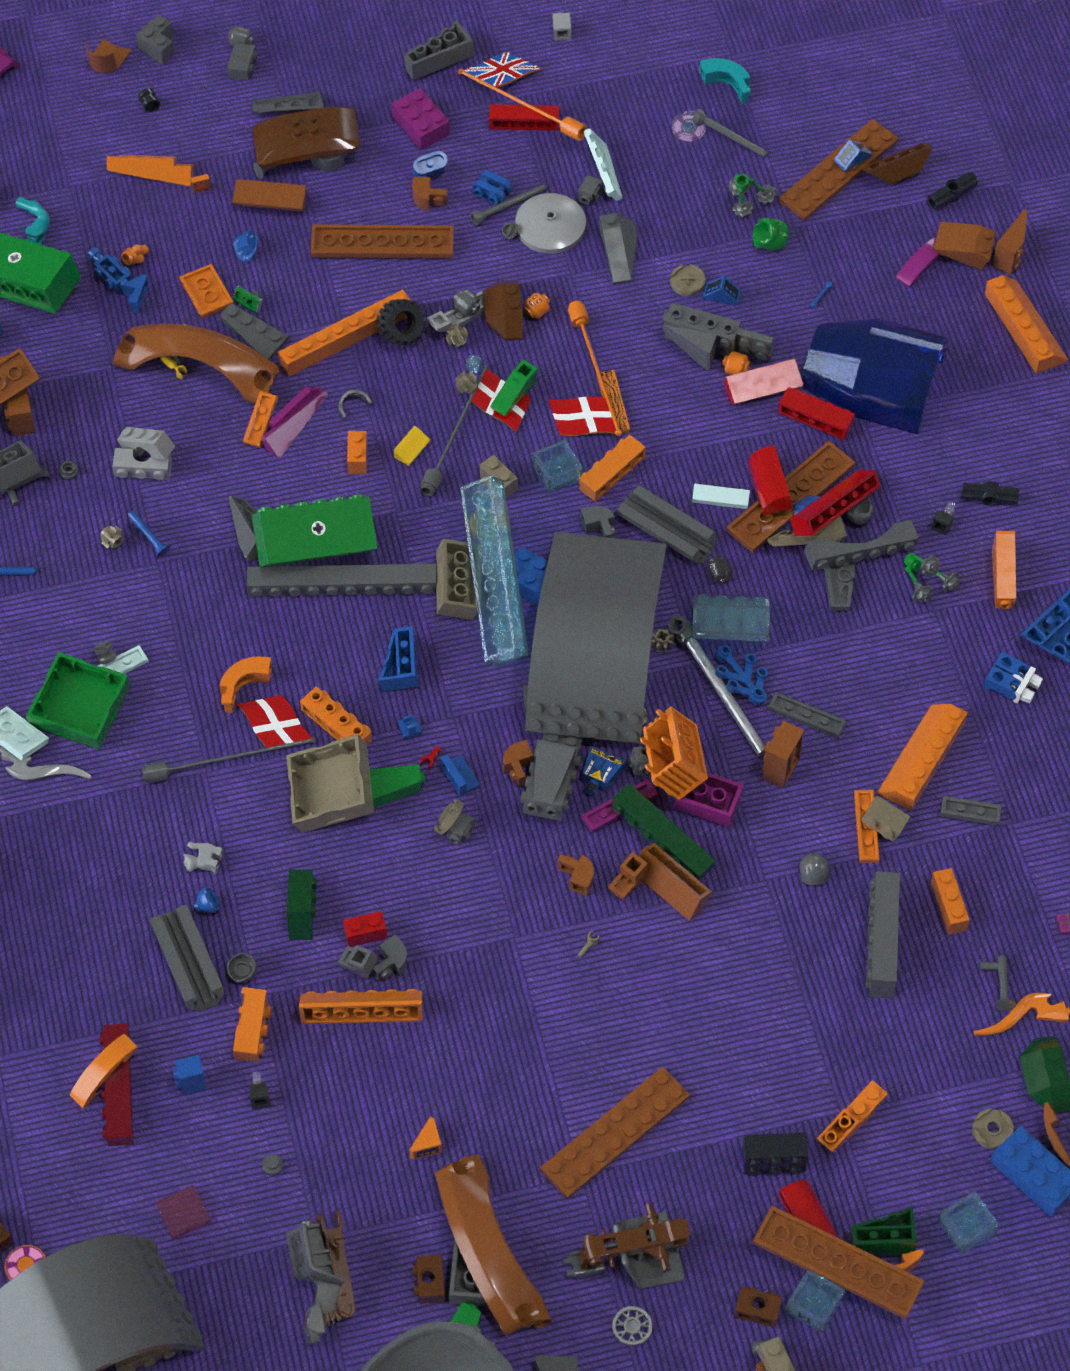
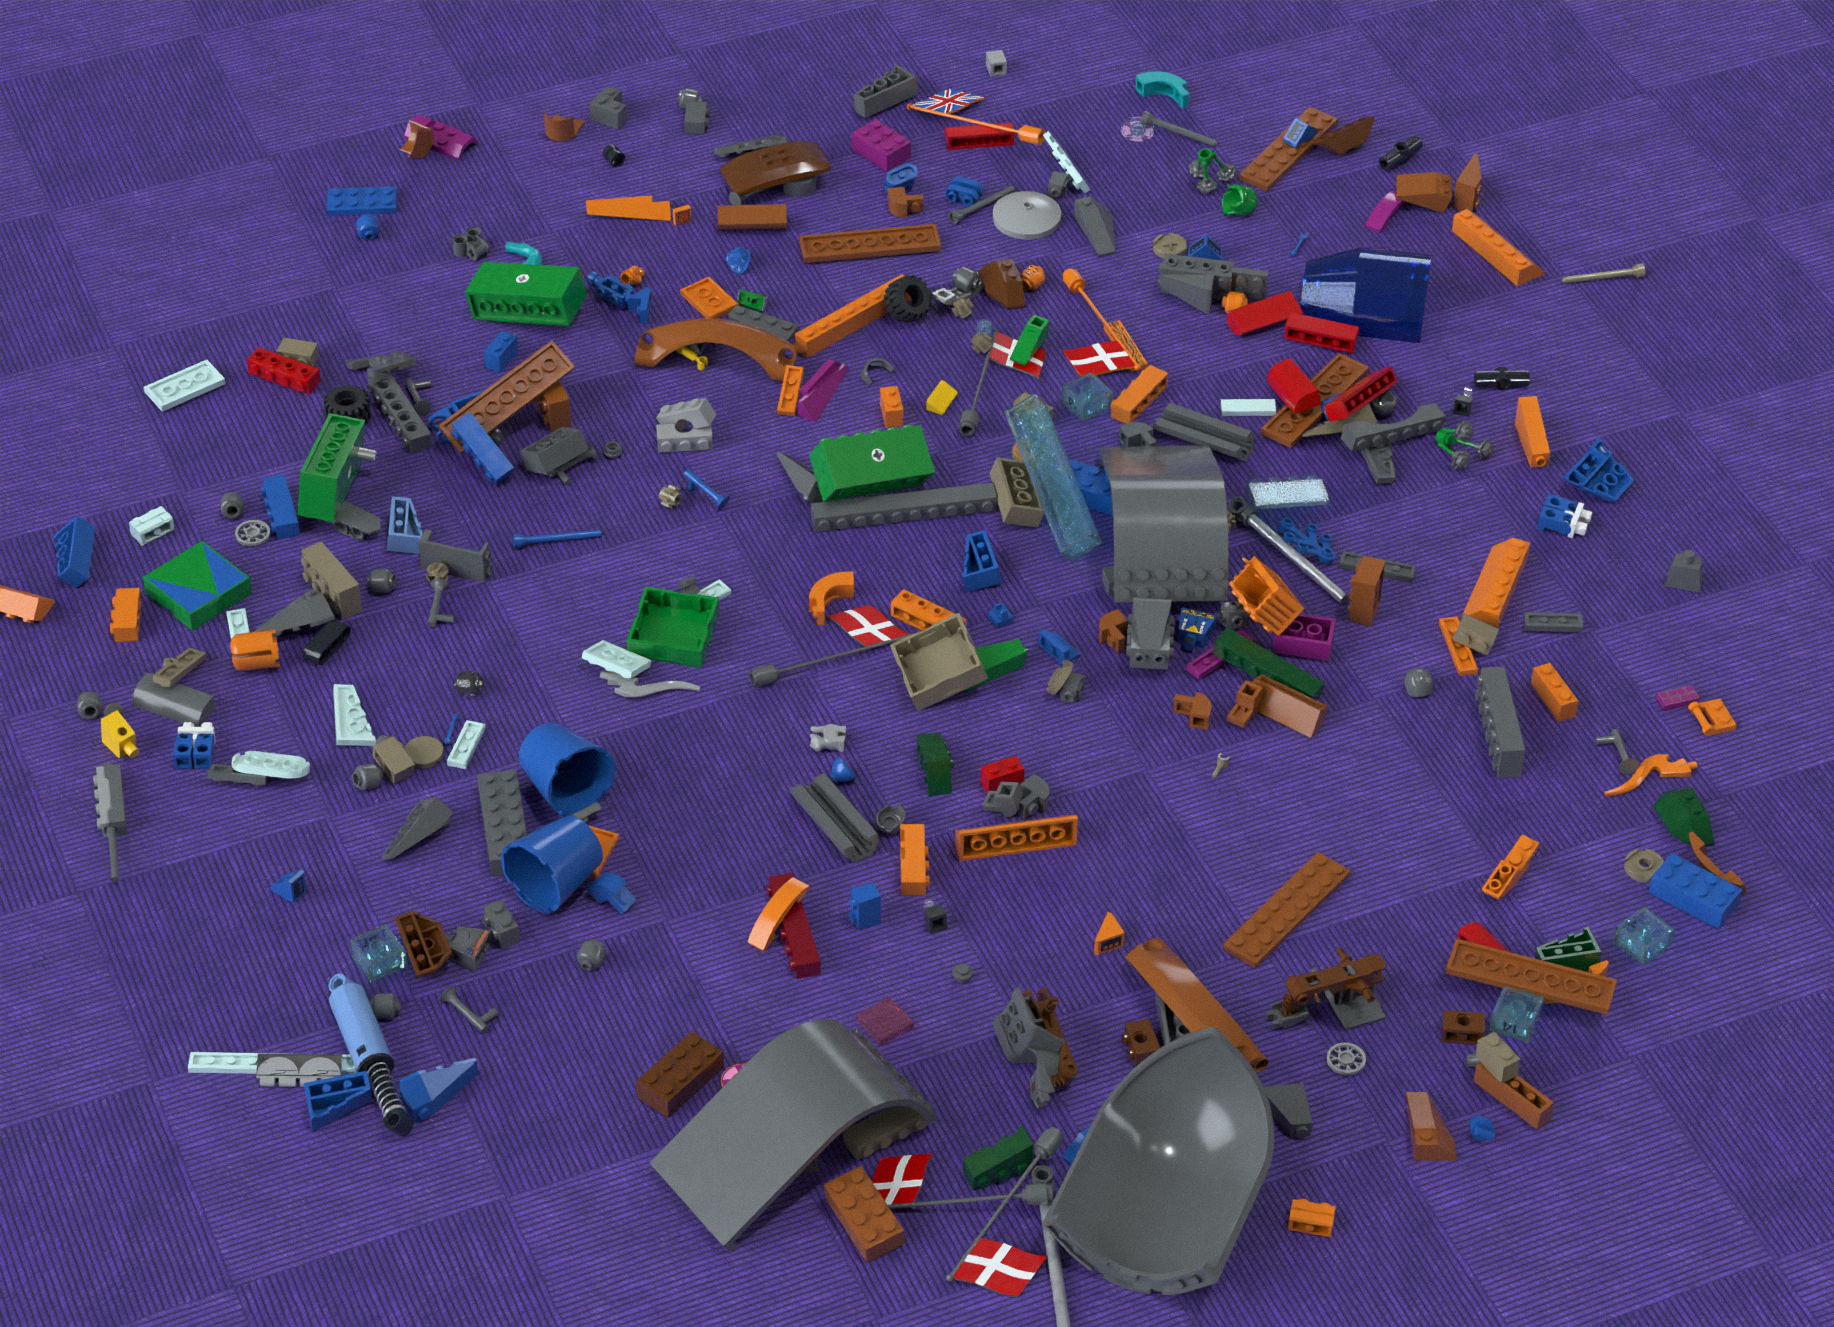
camera: 10 degrees left, 15 degrees down
(431, 757) = (1027, 638): red piece -> none
(510, 230) = (990, 223): dark grey plate -> none
(719, 569) = (1263, 462): clear smoke head -> none
(775, 1153) = (1446, 902): black piece -> none

